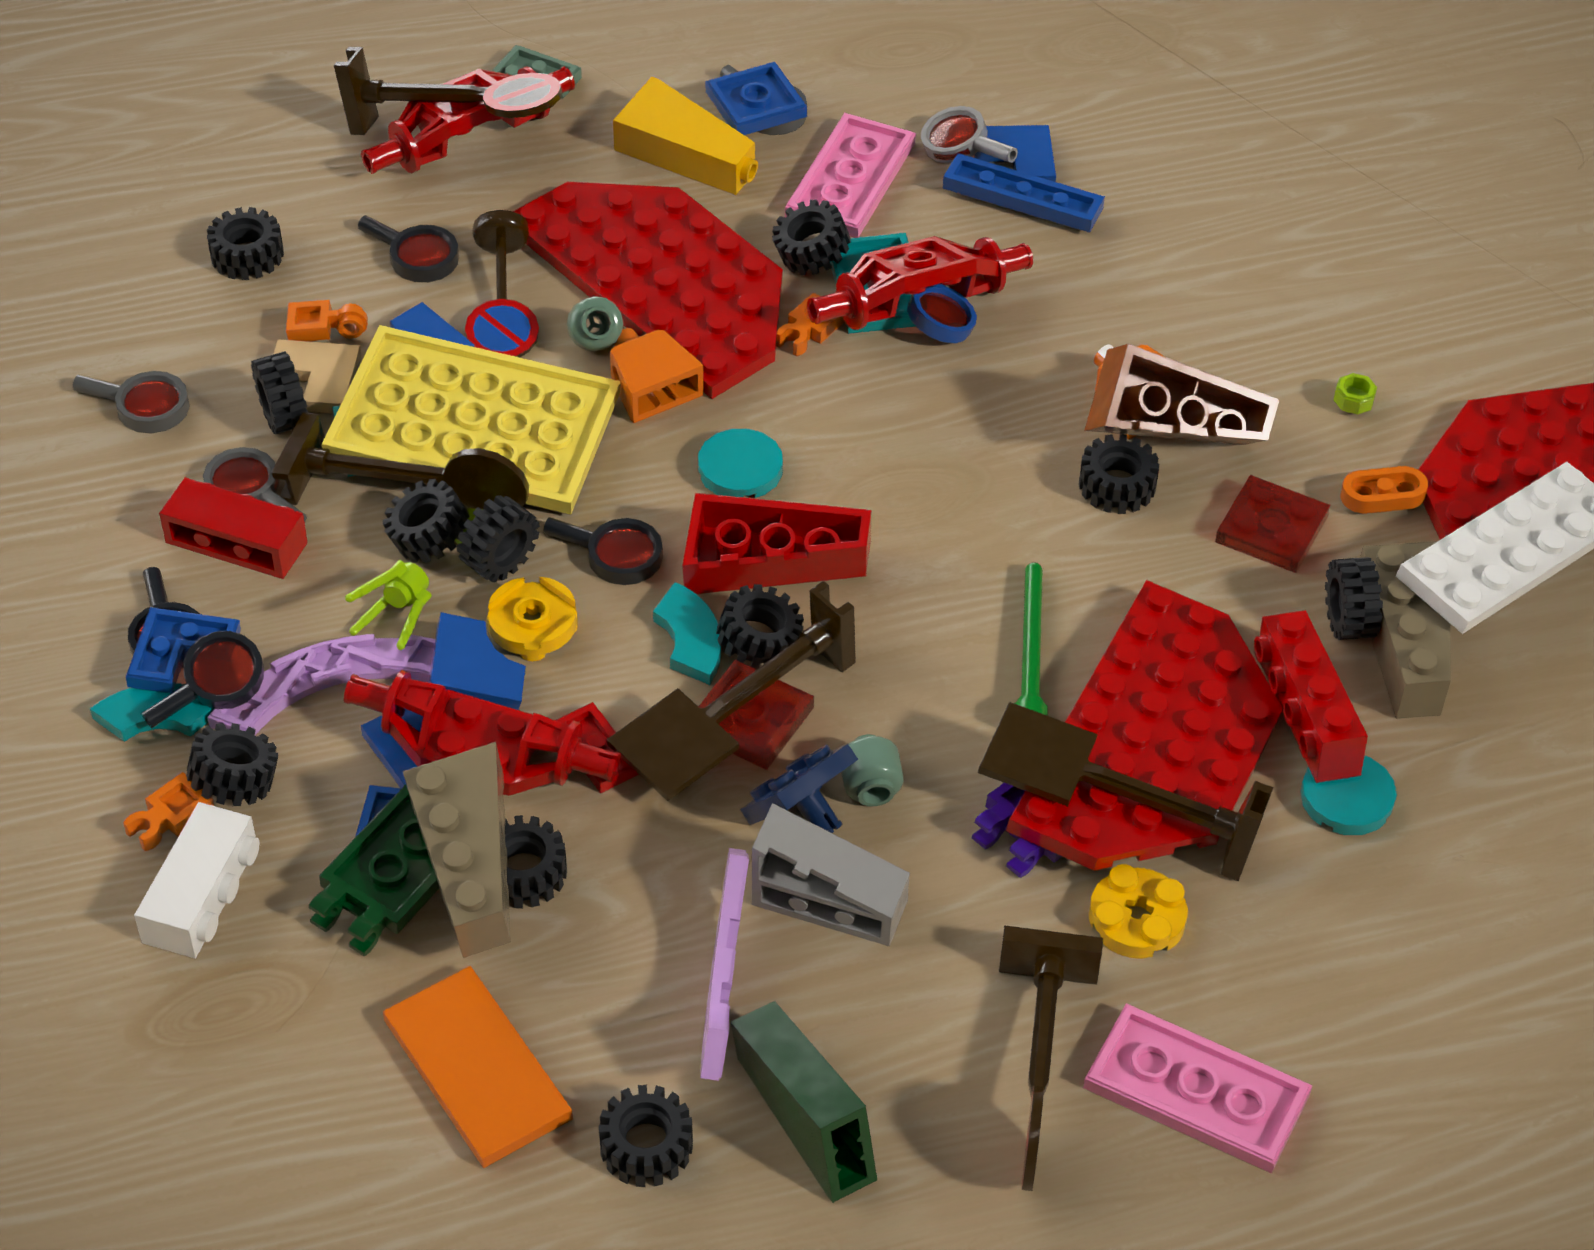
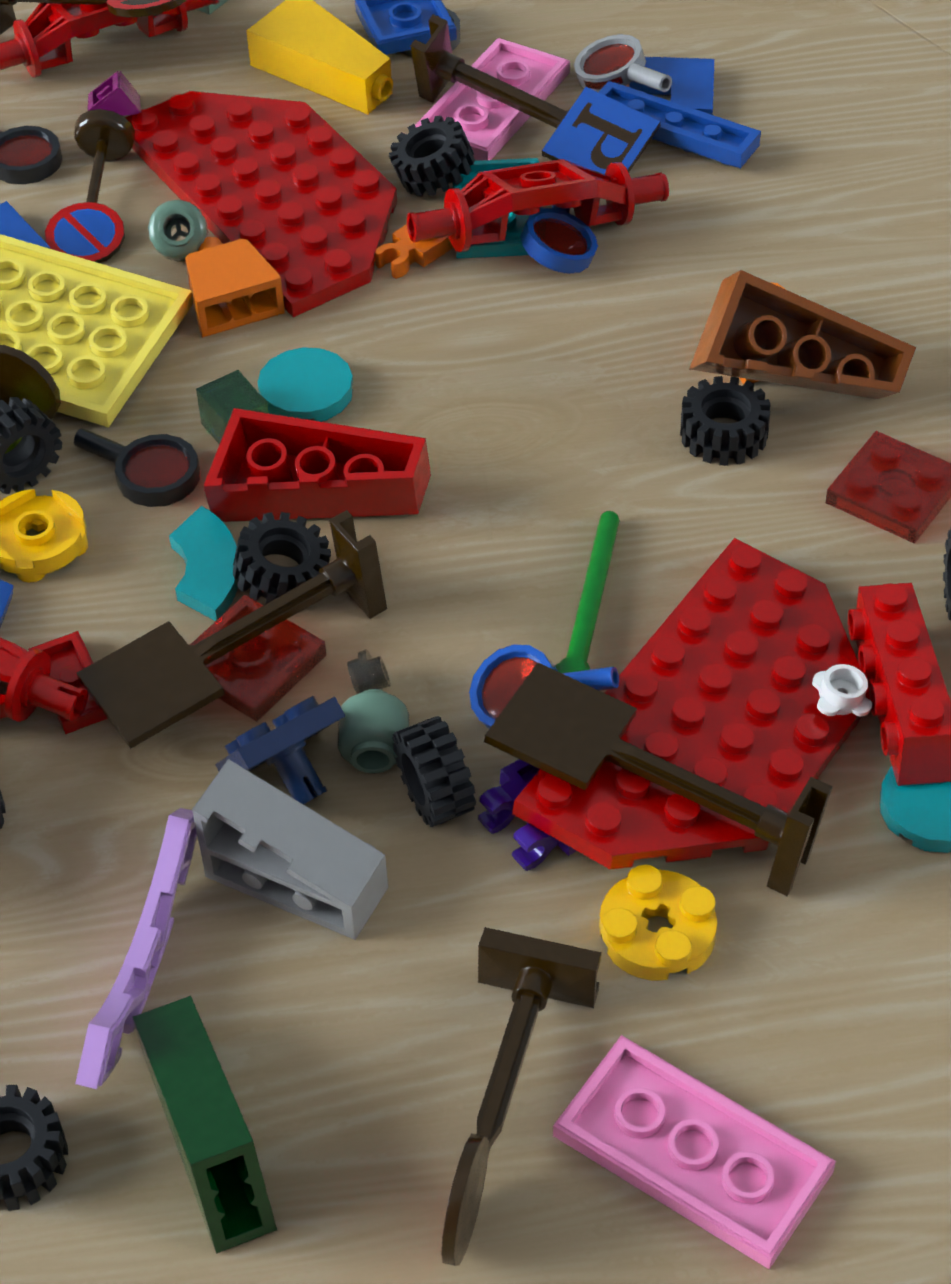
camera: 10 degrees right, 0 degrees up
(497, 192) = (115, 95): none -> magenta slope
(675, 490) = (221, 396): none -> clear green brick
(856, 721) = (368, 672): none -> clear smoke plate
(934, 800) = (434, 771): none -> black tyre
(951, 207) = (588, 134): none -> piece
(978, 714) = (508, 668): none -> piece
(1262, 707) = (842, 691): none -> white plate

